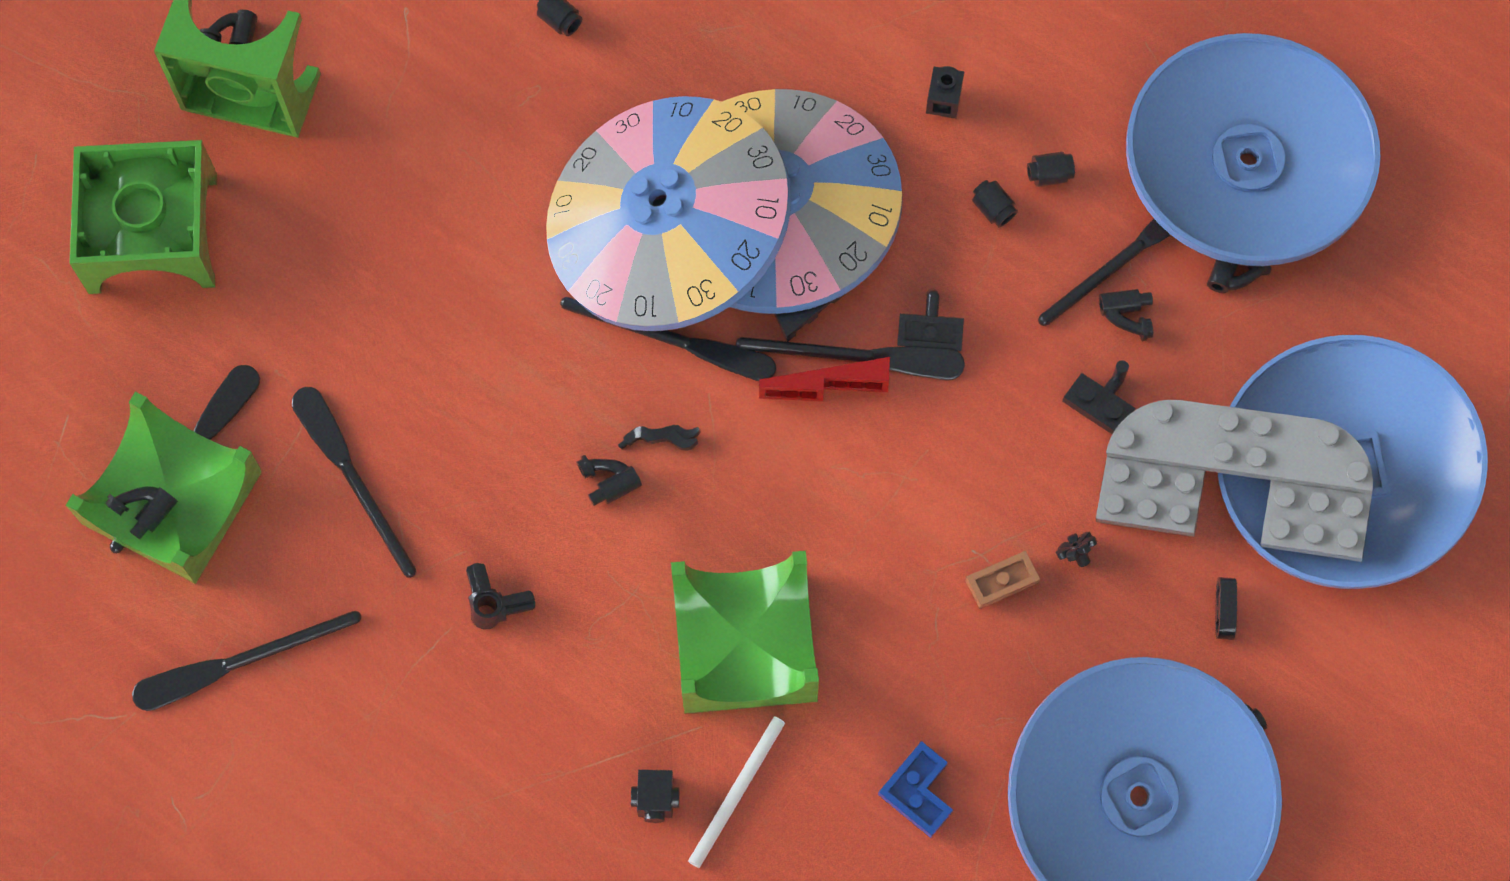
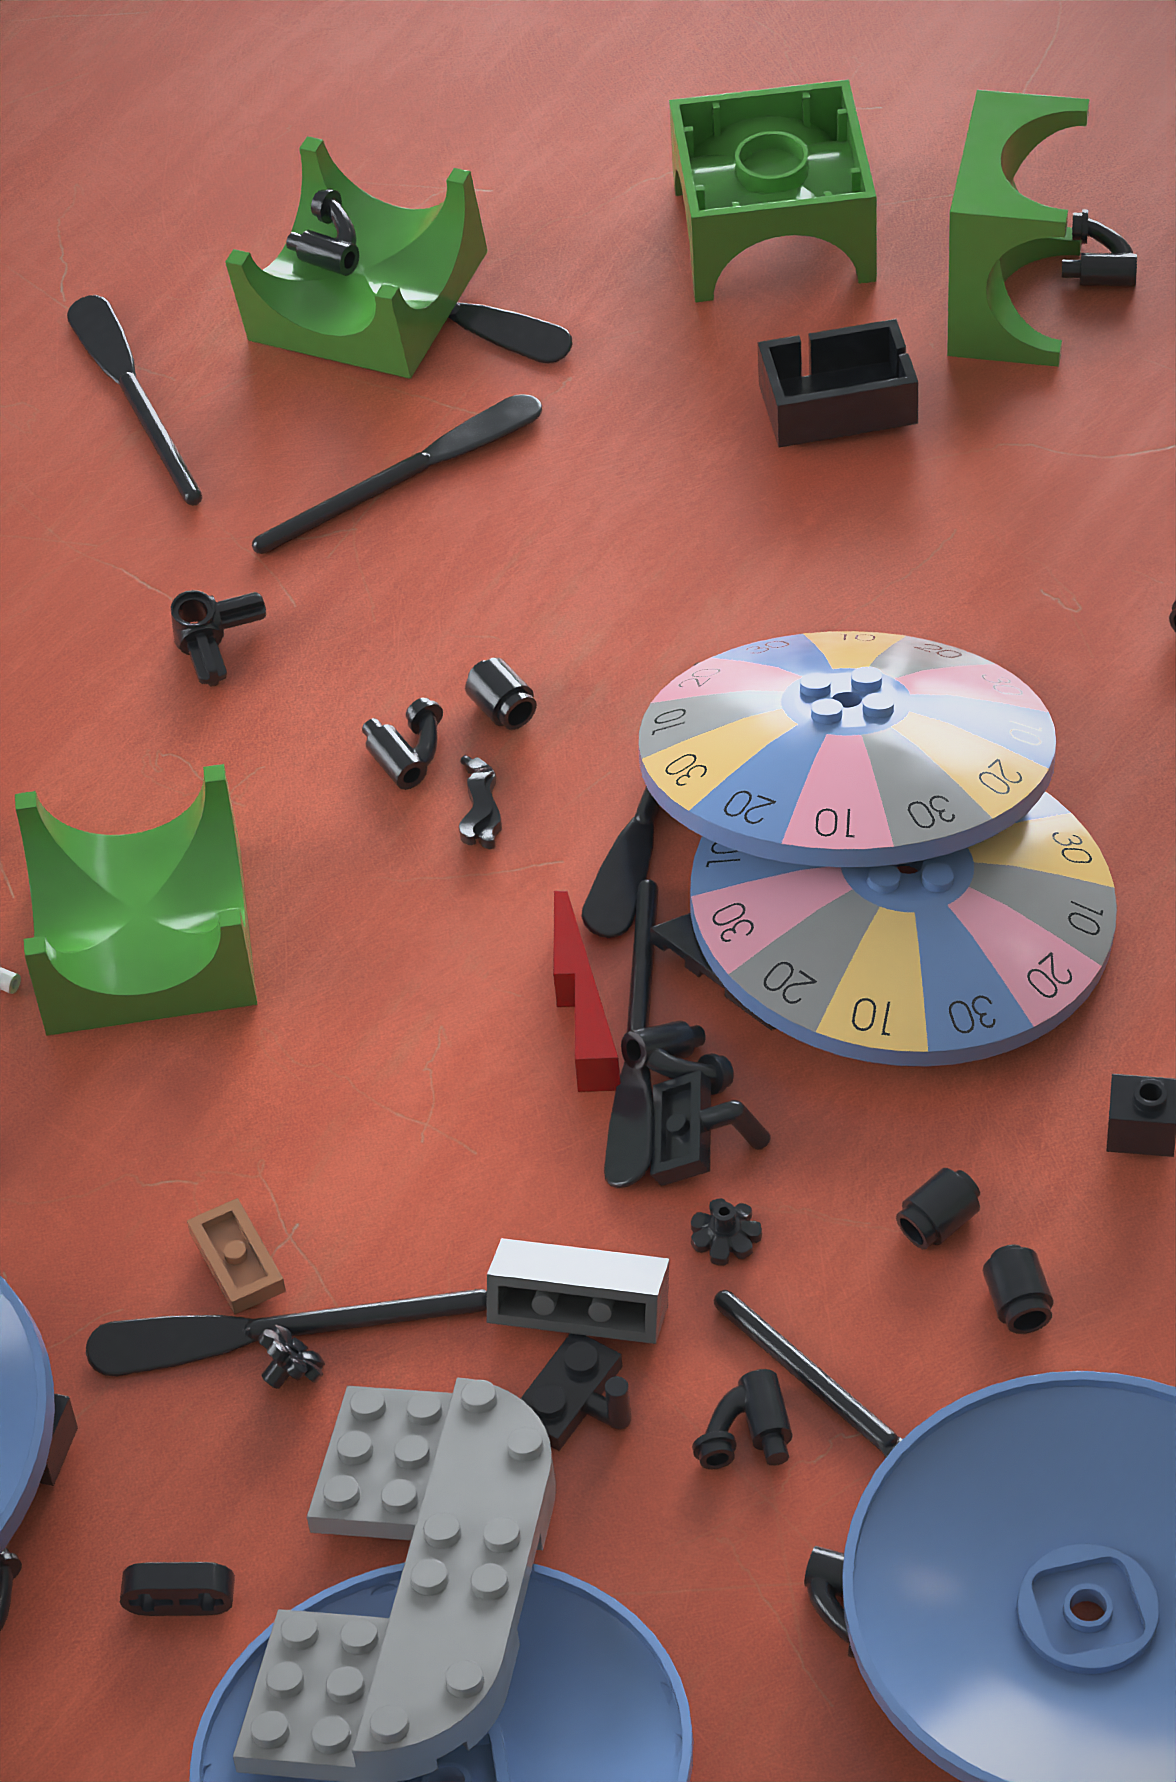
camera: 90 degrees right, 20 degrees down
(335, 196) = (854, 384): none -> black piece
(576, 418) = (501, 693): none -> black brick
(869, 335) = (665, 1047): none -> black plant
(996, 317) = (725, 1231): none -> black plant
(1044, 389) = (578, 1290): none -> dark grey brick
(1055, 618) = (176, 1340): none -> black piece

